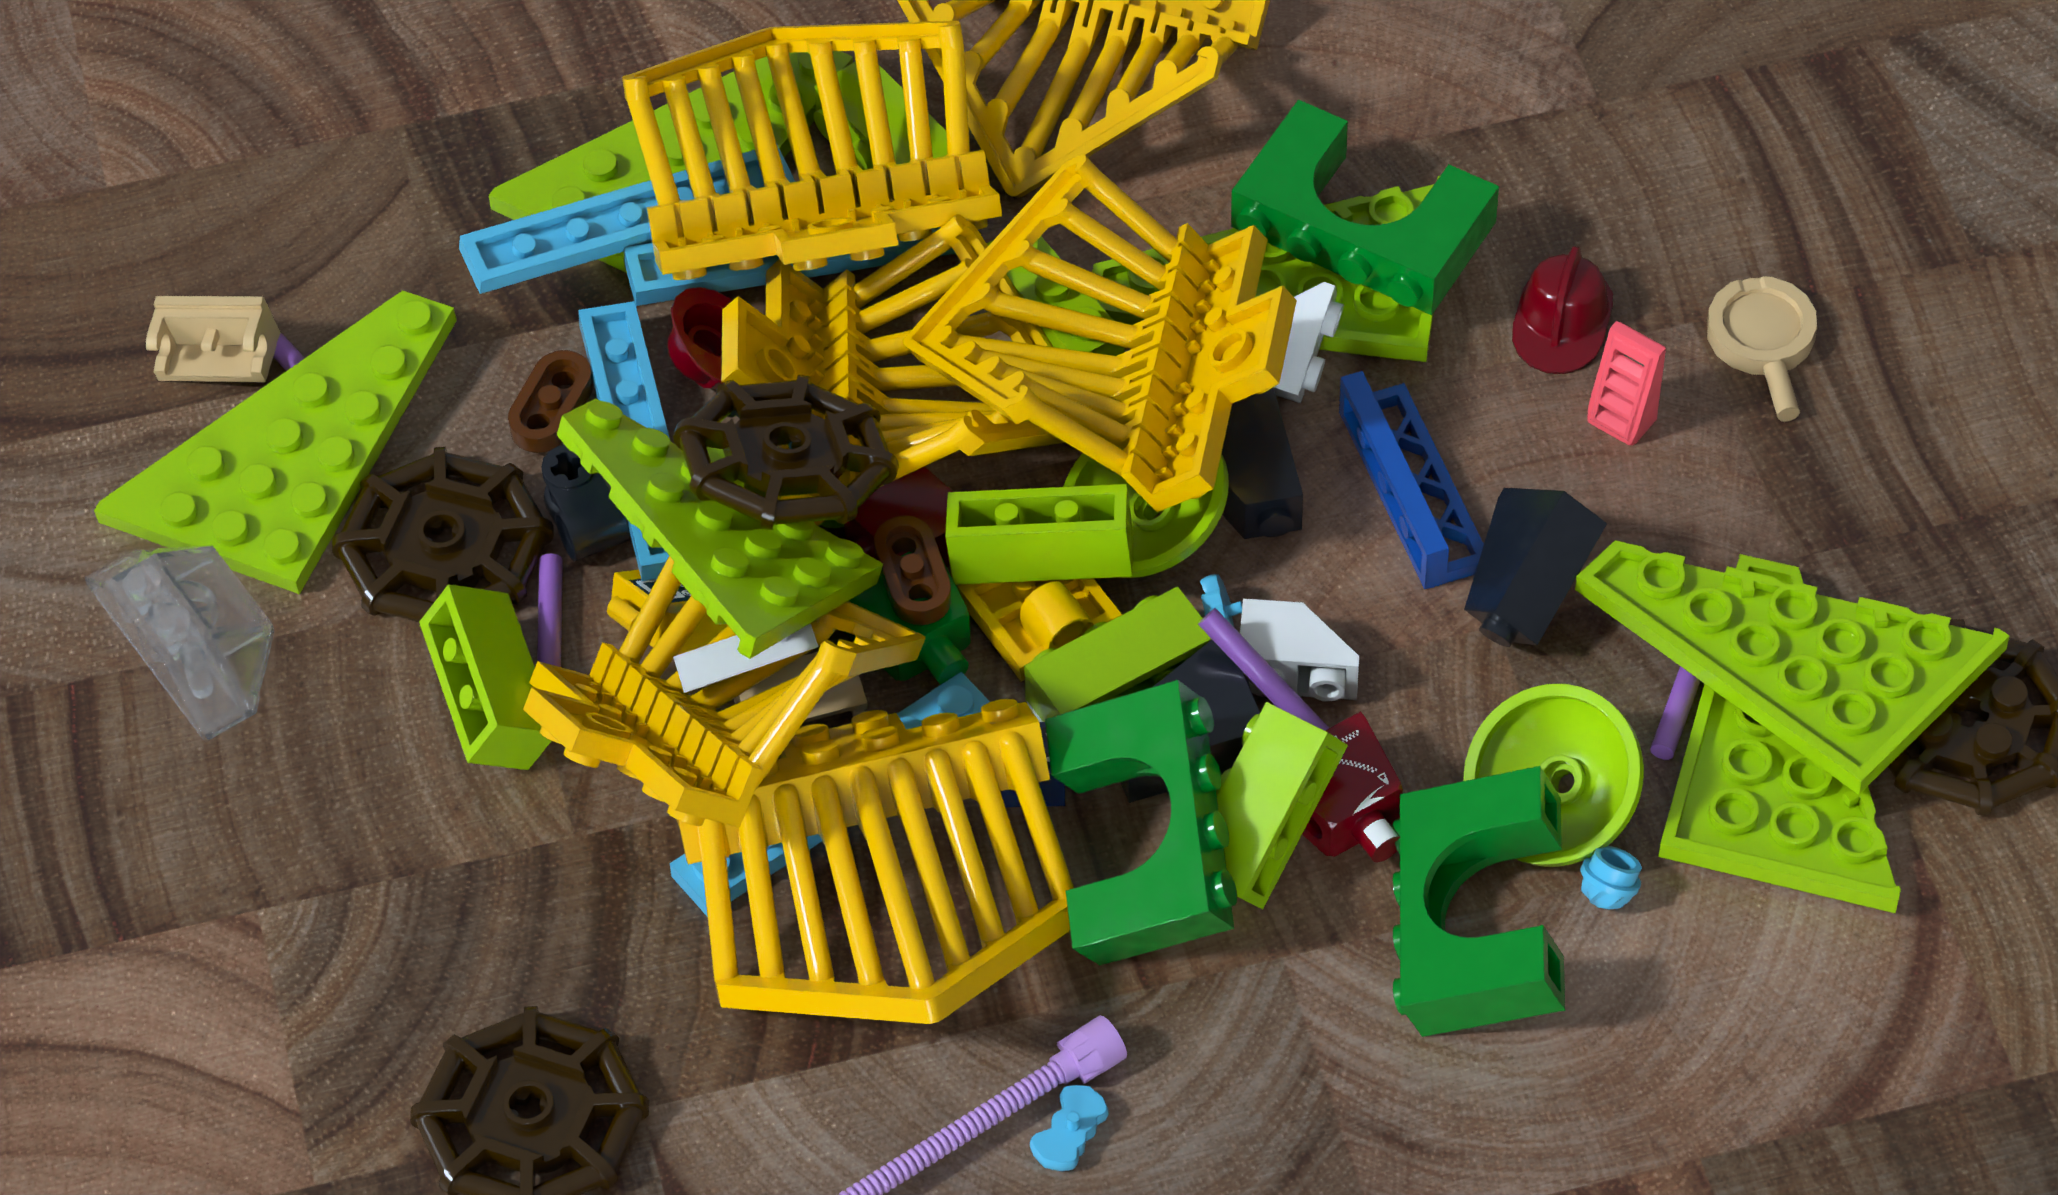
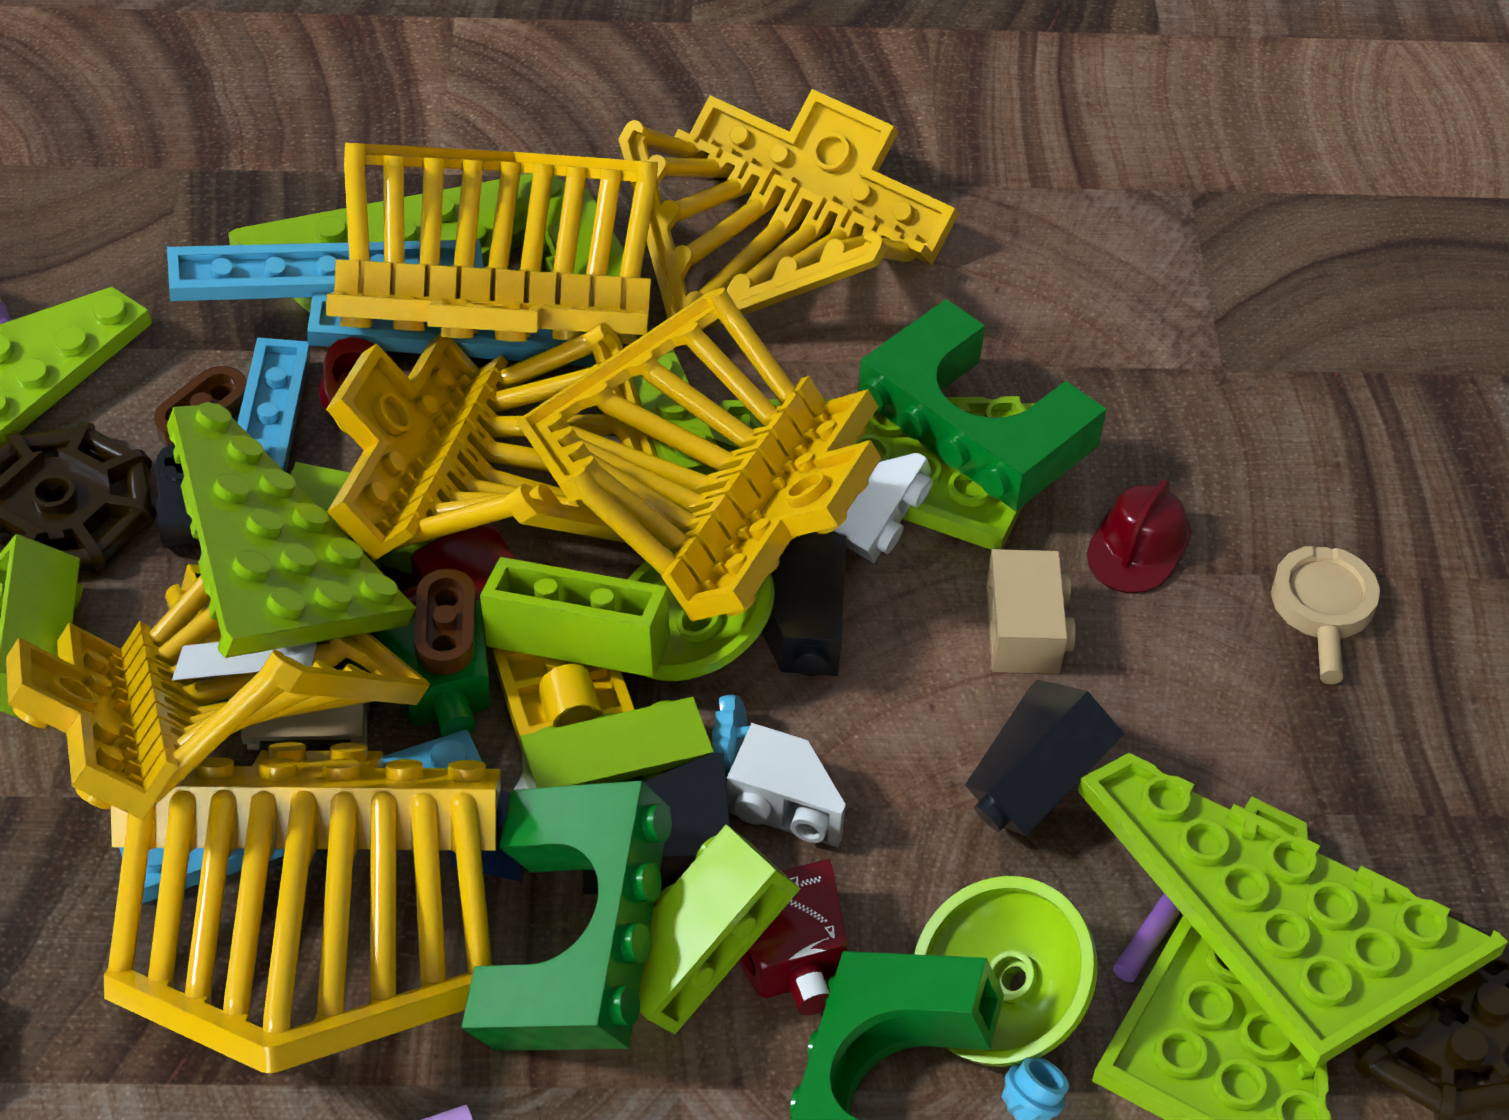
camera: 10 degrees right, 5 degrees down
(550, 609) = (119, 587): medium lavender bar -> none
(813, 463) = (327, 491): dark brown plate -> none
(1256, 668) = (744, 797): medium lavender bar -> none
(1401, 489) = (942, 660): blue fence -> none
(1473, 418) = (1028, 611): none -> tan brick
(1625, 392) = (1178, 618): coral slope -> none

